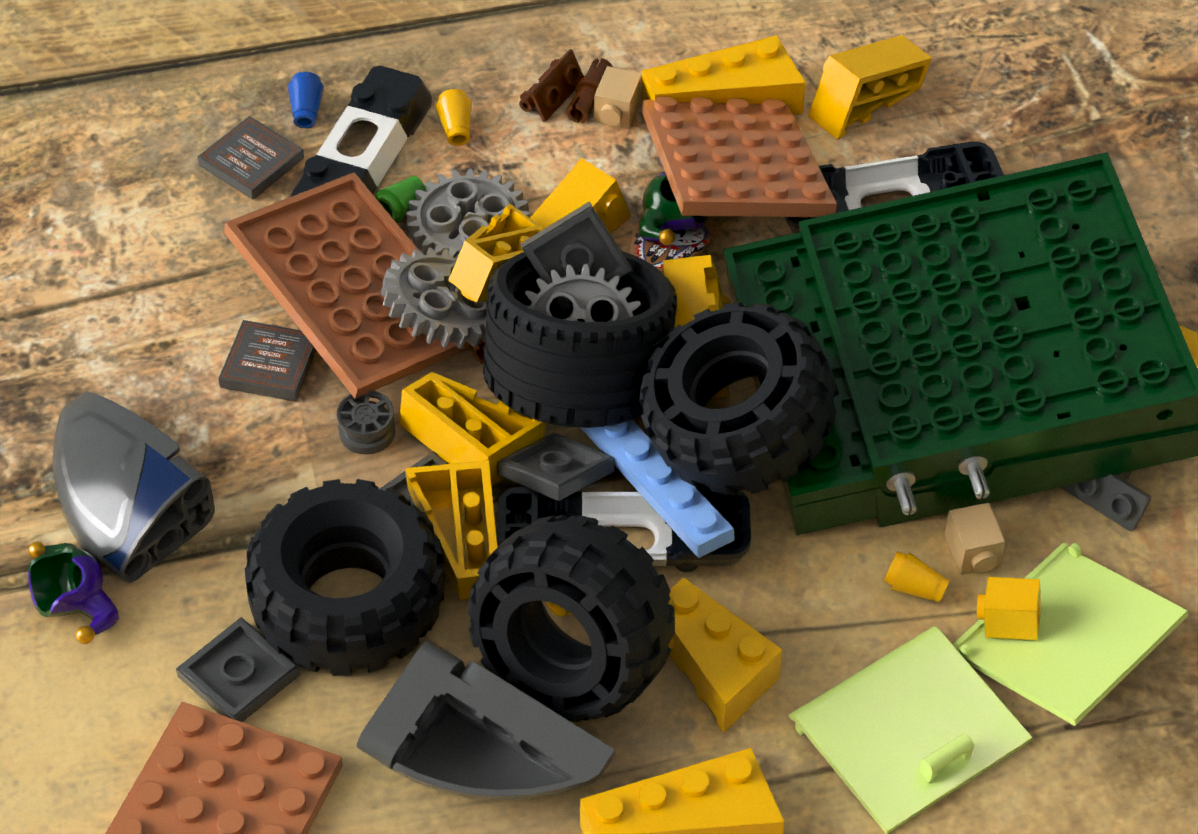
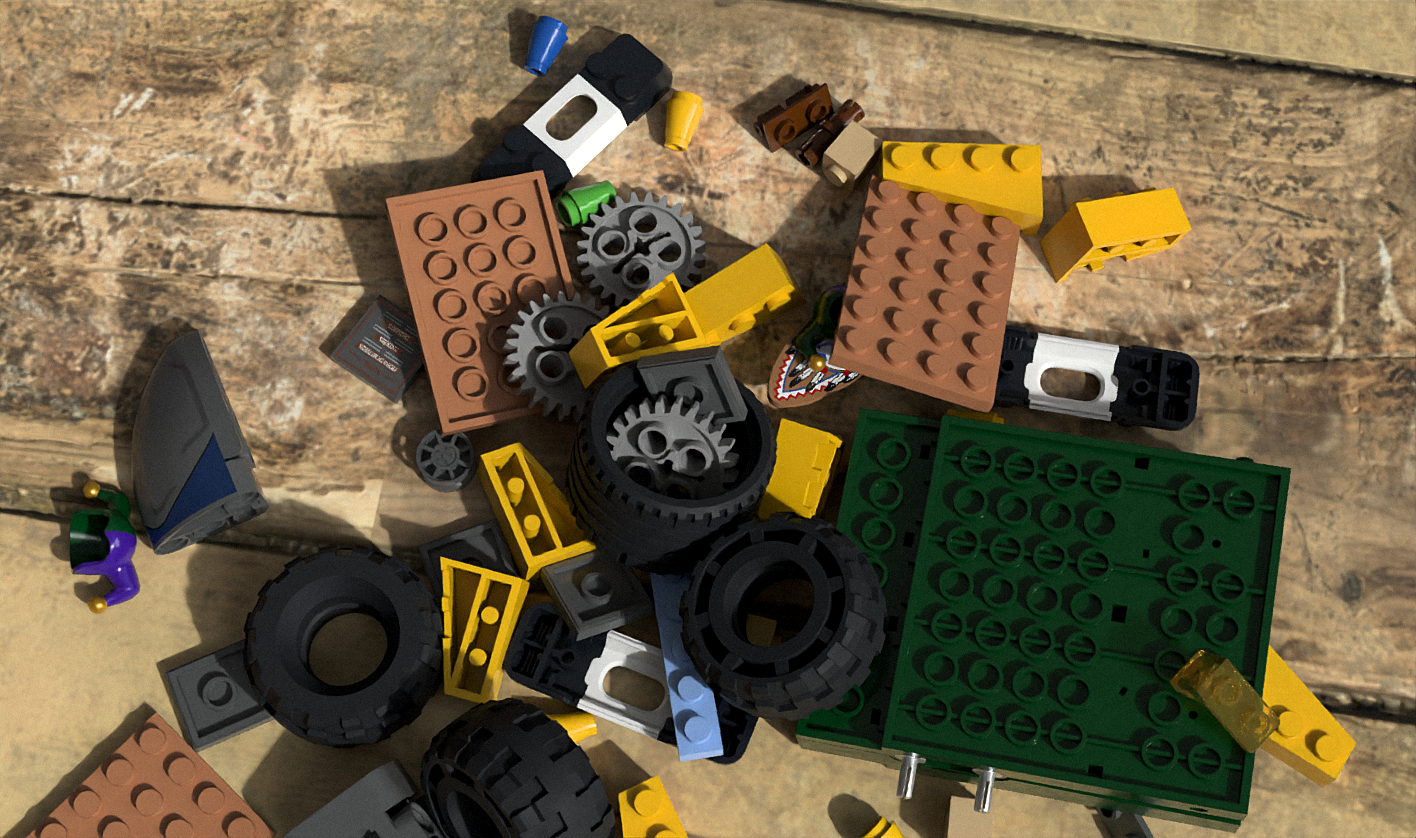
camera: 20 degrees right, 20 degrees up
(251, 157) = (466, 95): dark grey tile -> none
(1148, 308) = (1228, 697): none -> clear yellow bracket

